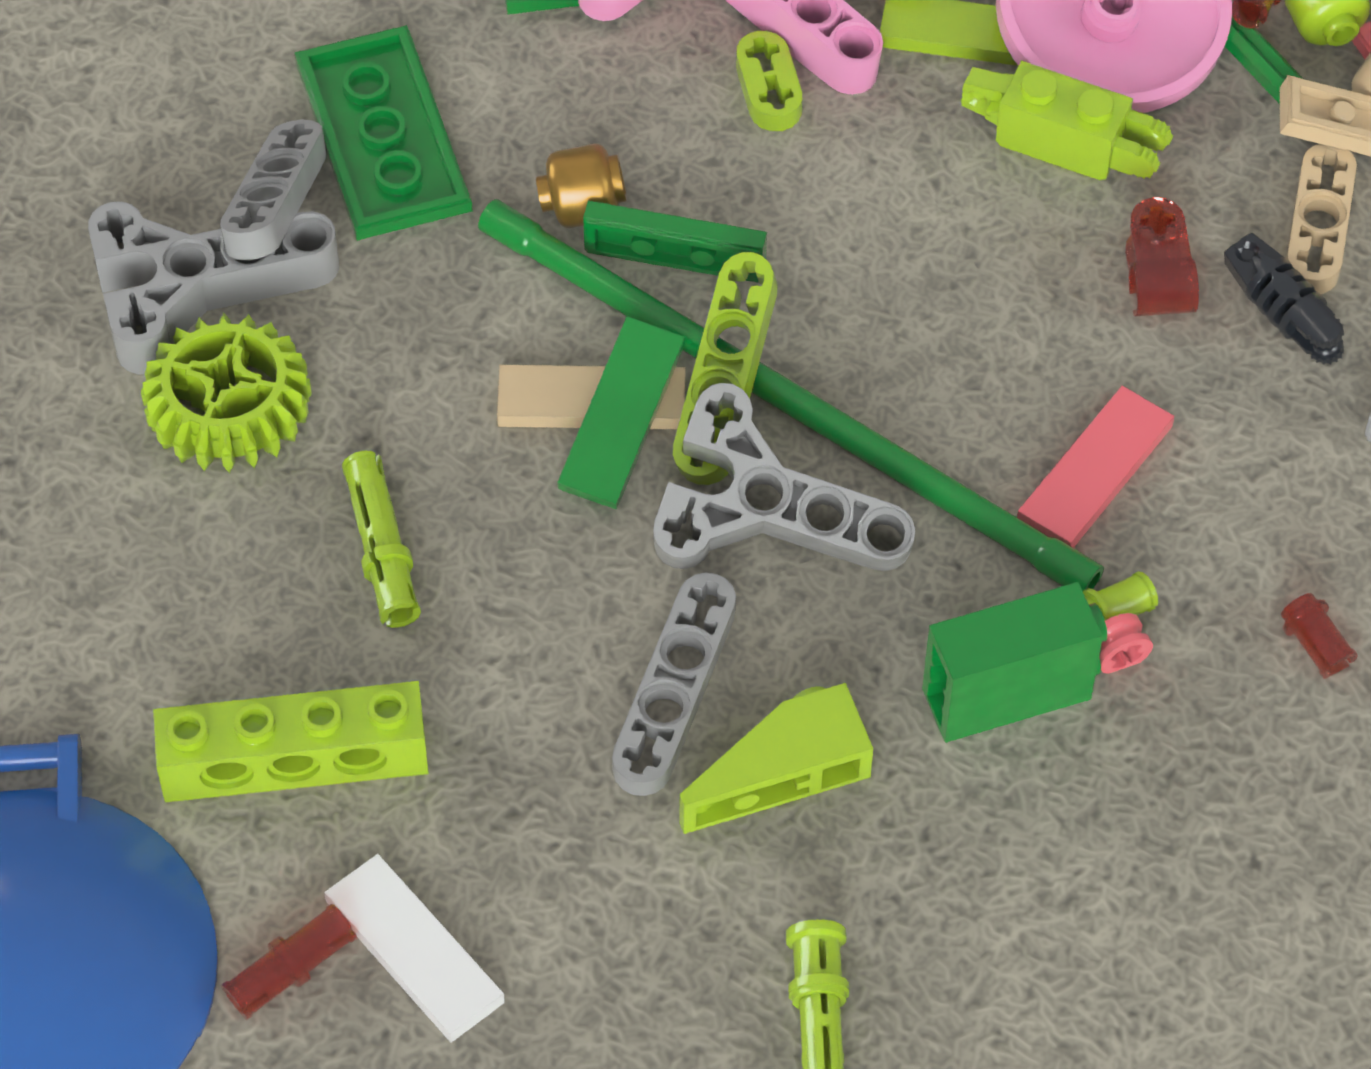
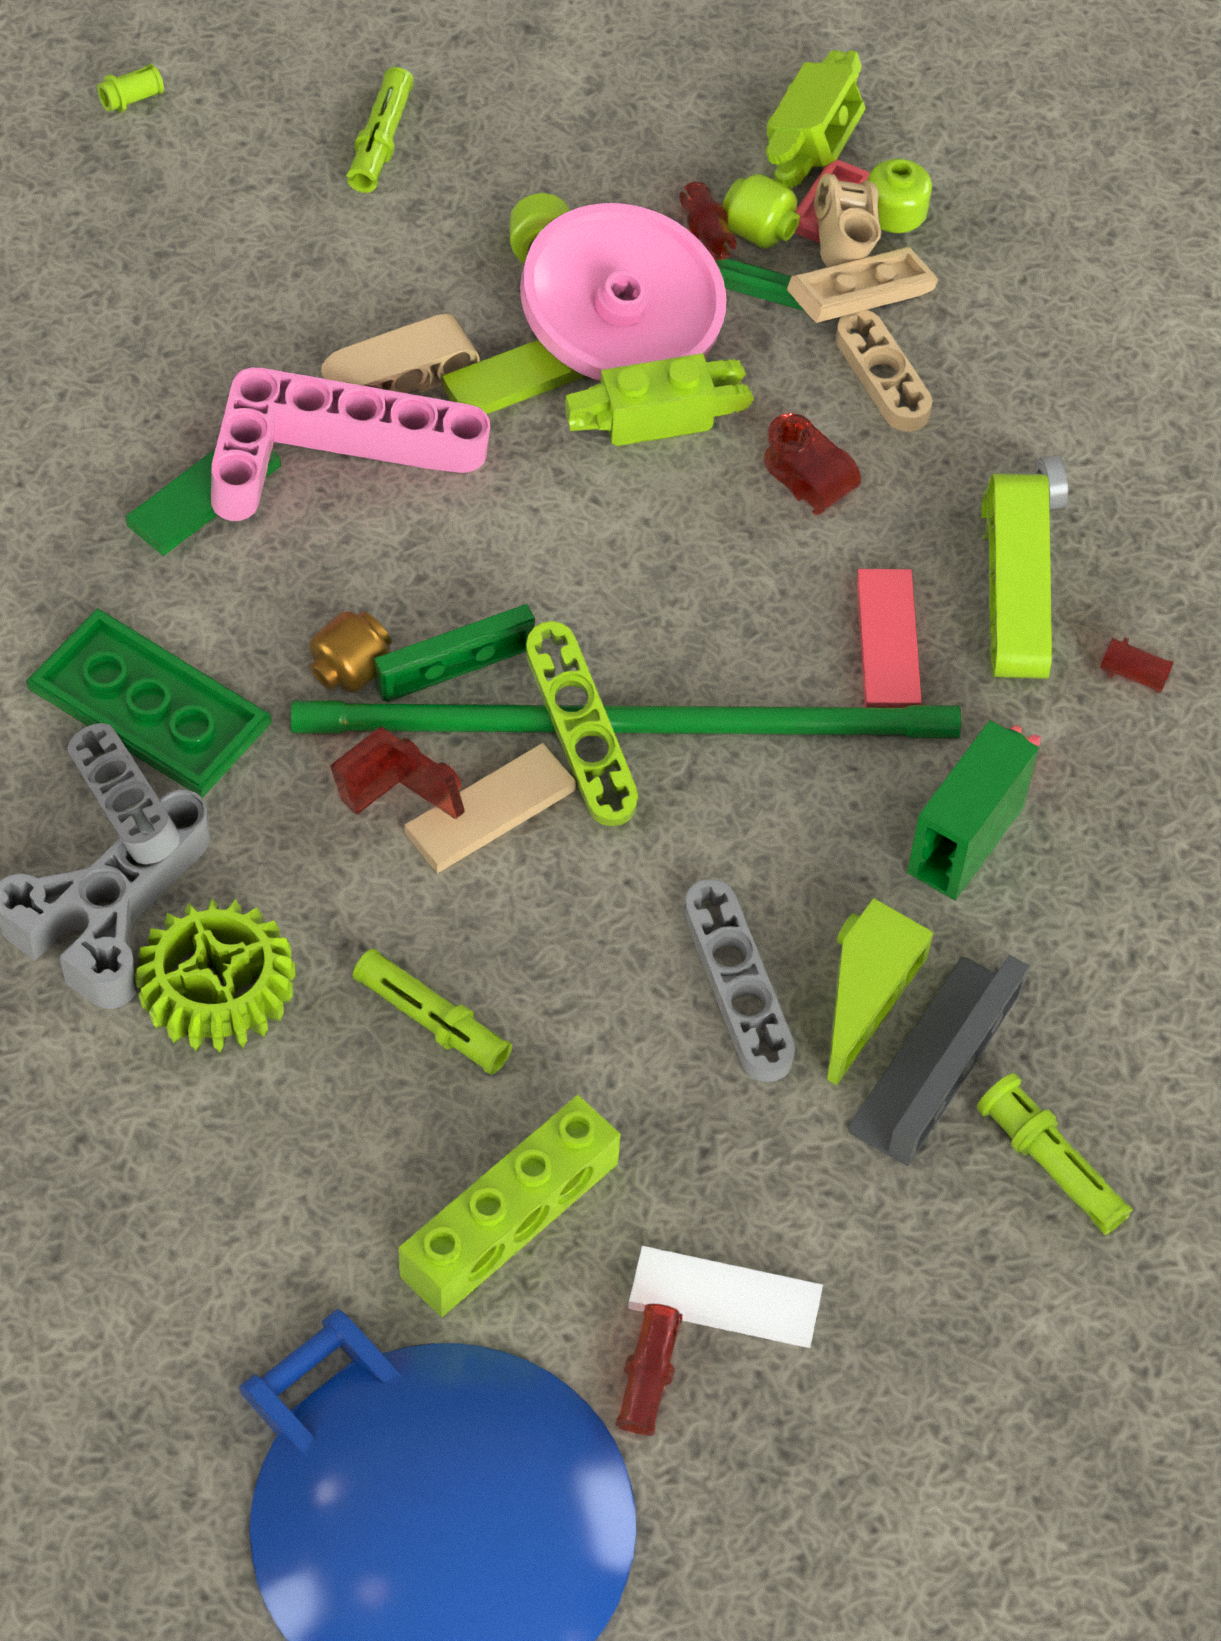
camera: 40 degrees left, 0 degrees up
(518, 300) = (385, 761): none -> clear red bracket
(621, 413) = (532, 804): green tile -> none
(750, 462) = (664, 778): light grey beam -> none
(780, 78) = (407, 498): lime beam -> none
(796, 869) = (937, 1057): none -> dark grey panel
(1130, 595) = (992, 707): lime pin -> none
(1264, 477) = (1019, 574): none -> lime beam
(1286, 298) = (913, 440): black hinge -> none

